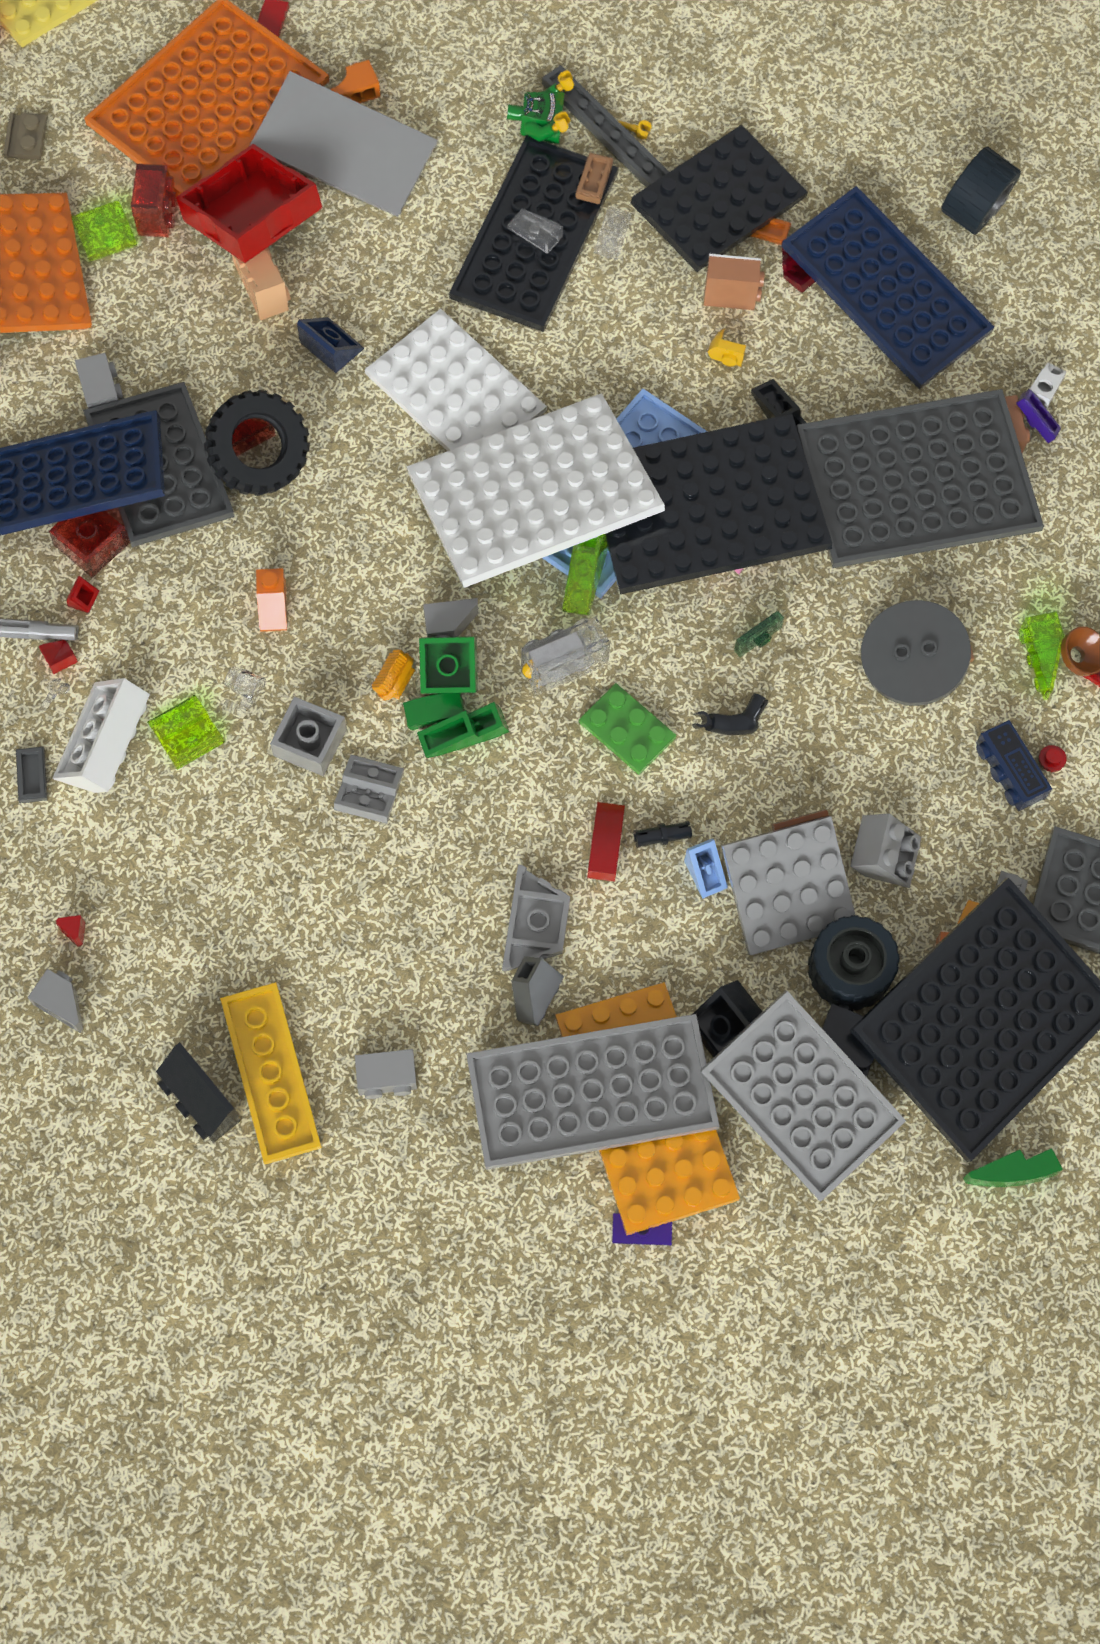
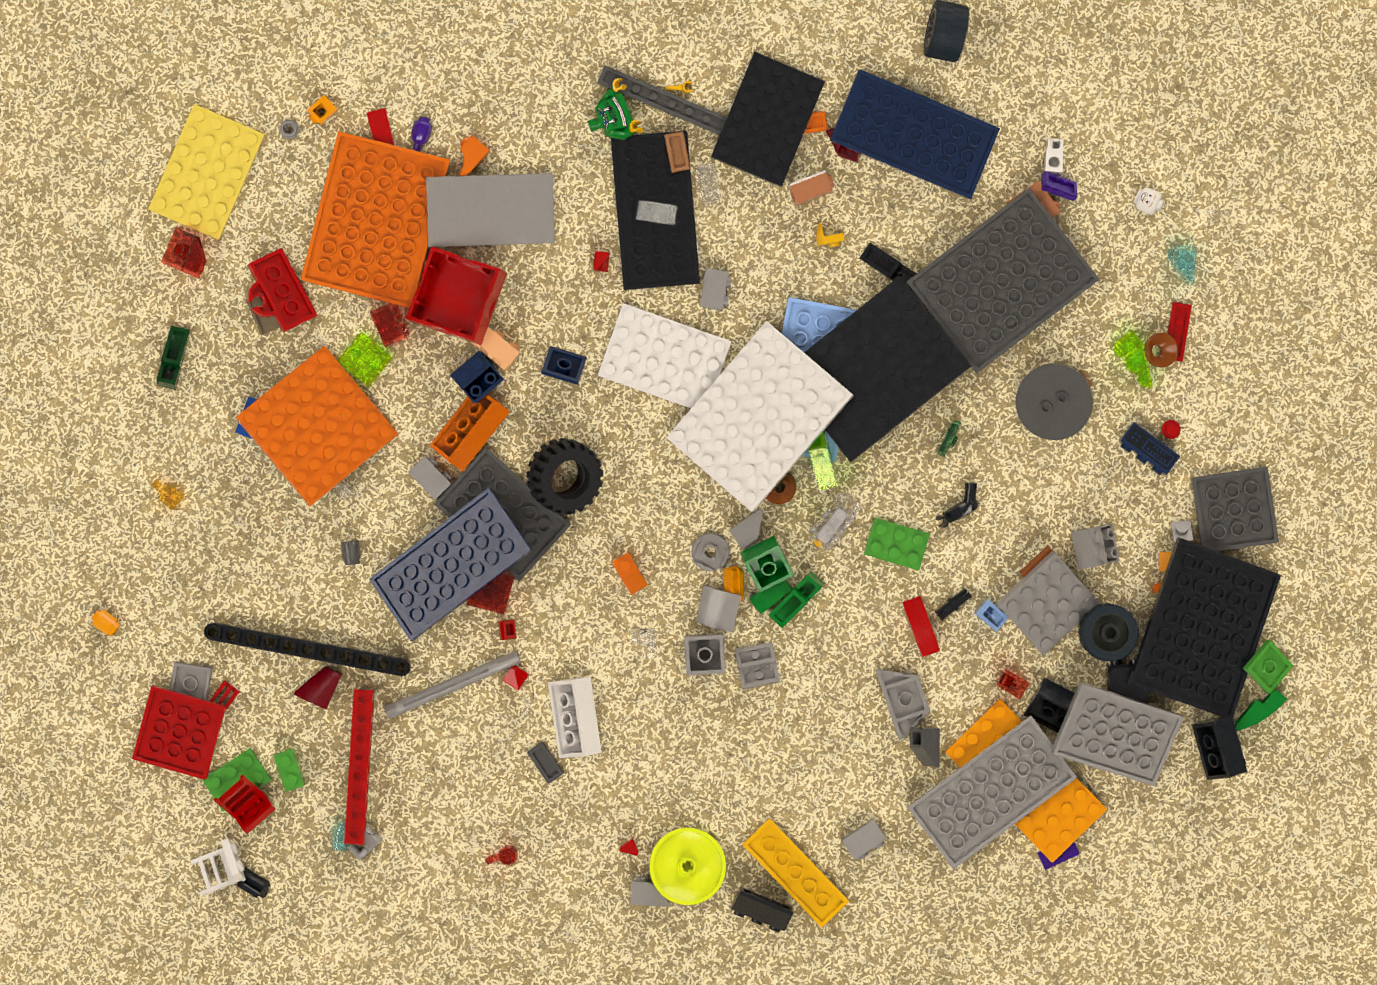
camera: 30 degrees left, 20 degrees up
(50, 116) = (279, 291): none -> red plate
(131, 988) = (687, 866): none -> neon yellow dish
(179, 356) = (469, 430): none -> orange slope
(186, 732) = (624, 686): clear neon green slope -> none
(219, 298) = (477, 377): none -> dark blue slope
(315, 40) = (421, 132): none -> dark purple plant
(359, 693) = (718, 608): none -> light grey slope
(390, 641) = (705, 562): none -> light grey tile
(440, 253) = (601, 261): none -> red slope
(514, 604) = (787, 494): none -> dark orange piece
(557, 341) = (714, 289): none -> light grey brick
(689, 967) = (1012, 683): none -> clear red slope
(938, 1187) = (1219, 748): none -> black brick
(1053, 1115) = (1268, 667): none -> bright green plate

